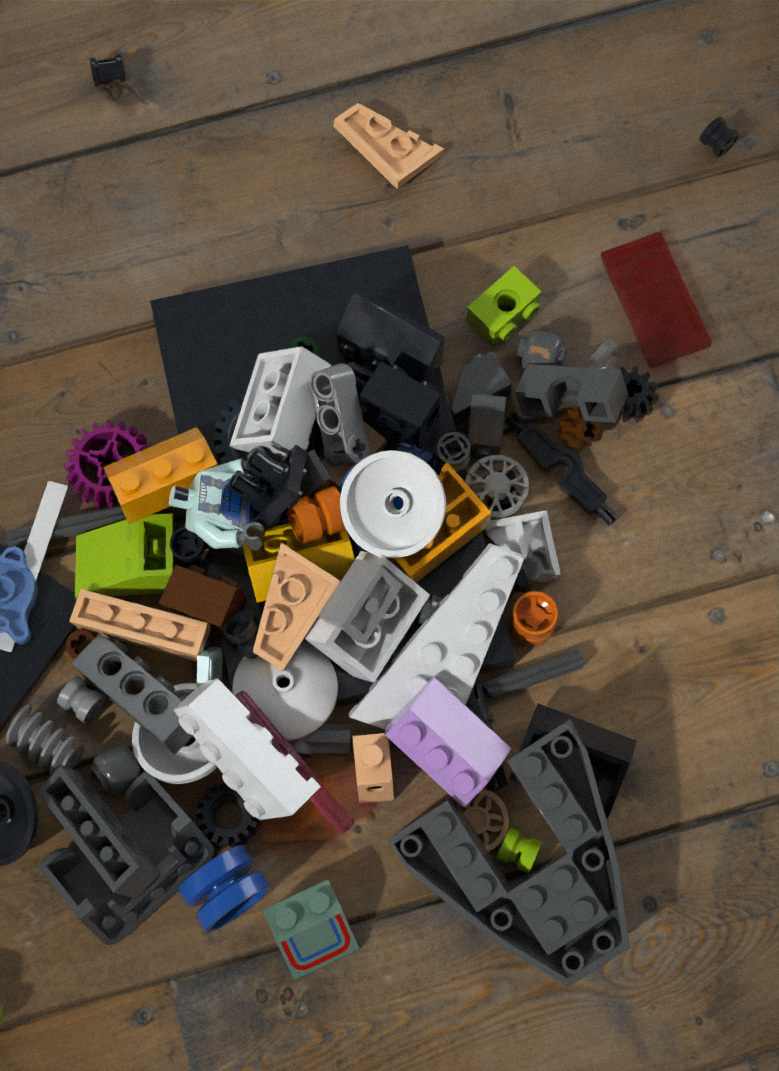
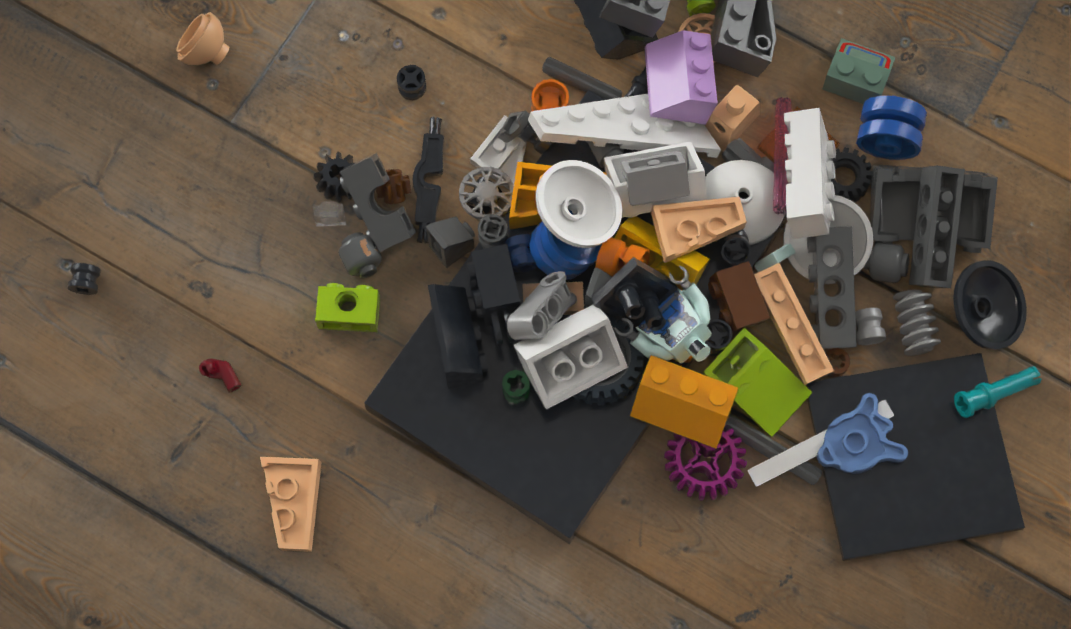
camera: 135 degrees left, 0 degrees up
(479, 376) = (420, 270): dark grey slope -> none
(543, 179) = (220, 370): none -> dark red arm
(655, 299) = (249, 223): clear red tile -> none
(668, 520) = (411, 76): none -> black wheel

